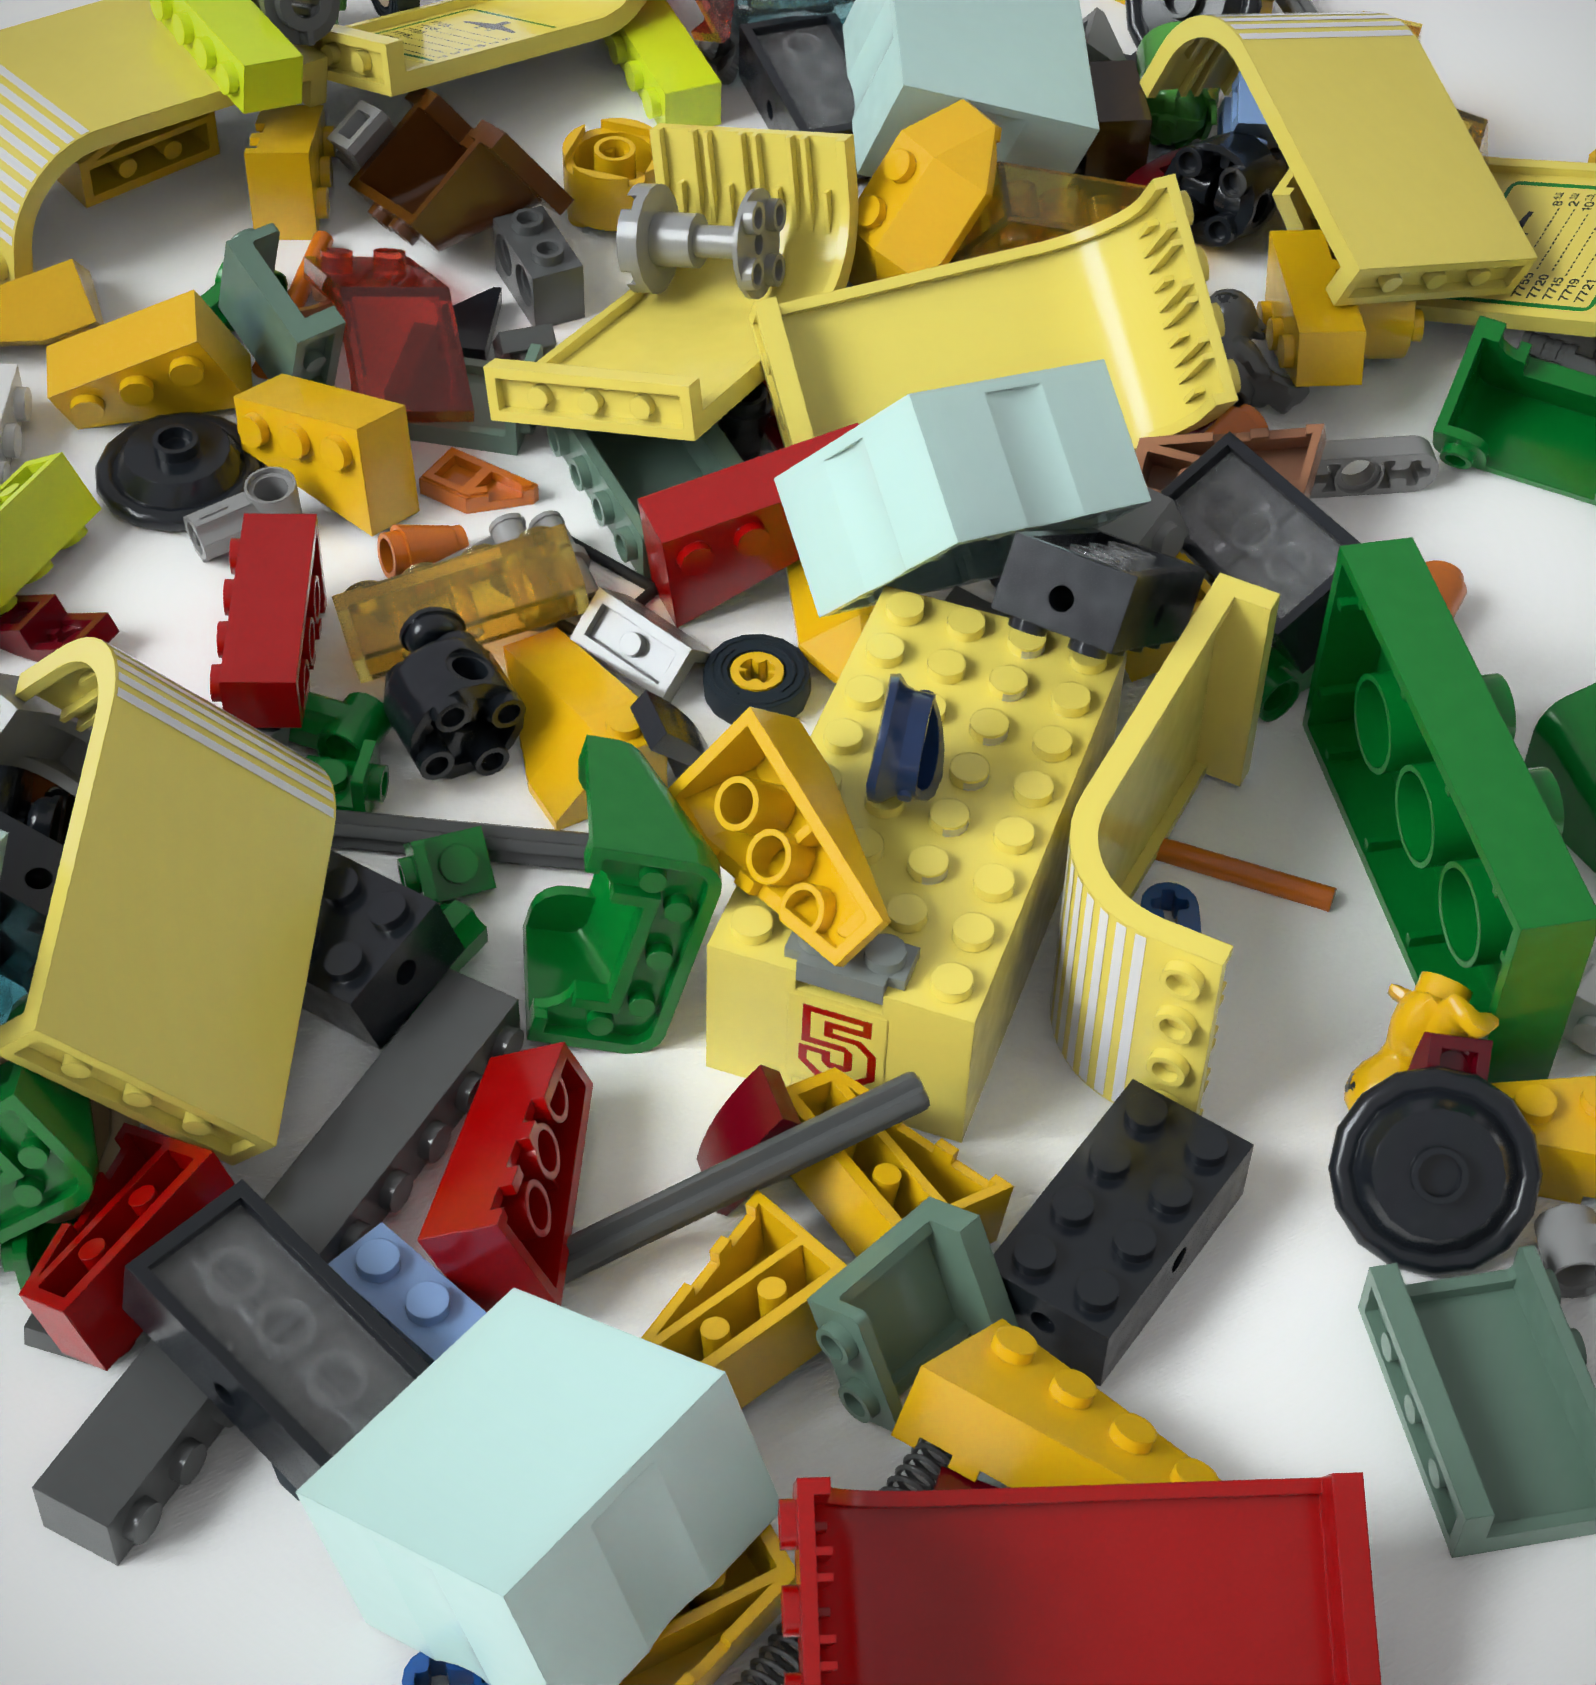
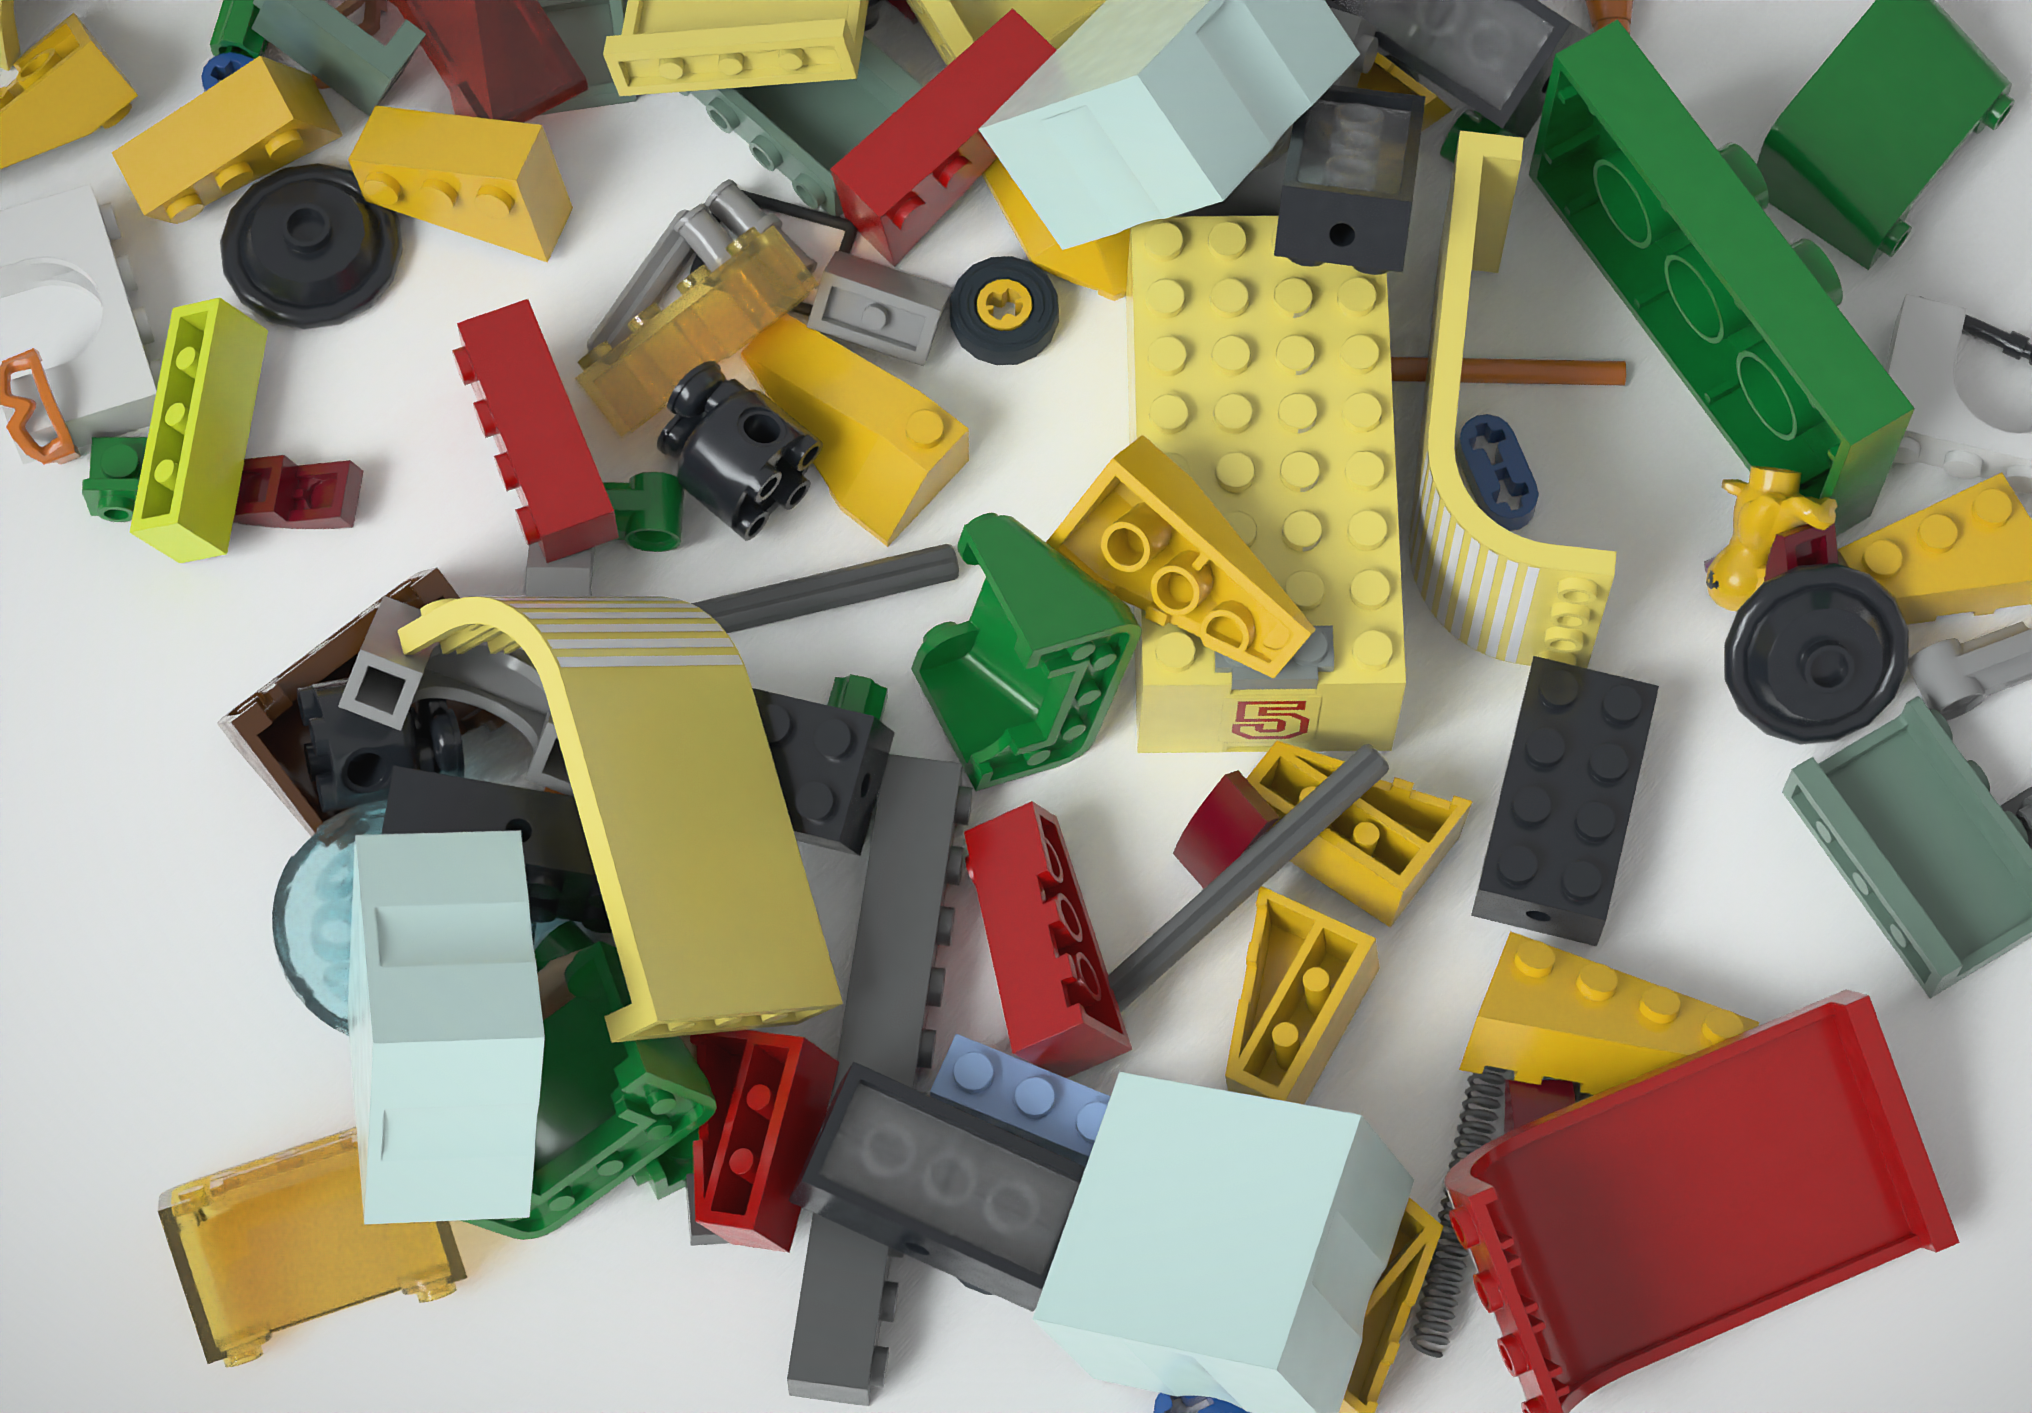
camera: 20 degrees left, 20 degrees up
(265, 491) = (415, 293): light grey piece -> none
(357, 782) = (672, 569): green bracket -> none
(416, 544) = (605, 268): orange cone -> none
(447, 865) = (817, 635): green bracket -> none
(475, 484) = (616, 158): orange tile -> none
(668, 731) = (980, 430): black slope -> none
(906, 1304) = (1424, 947): sand green panel -> none
(907, 746) = (1247, 432): dark blue hat -> none

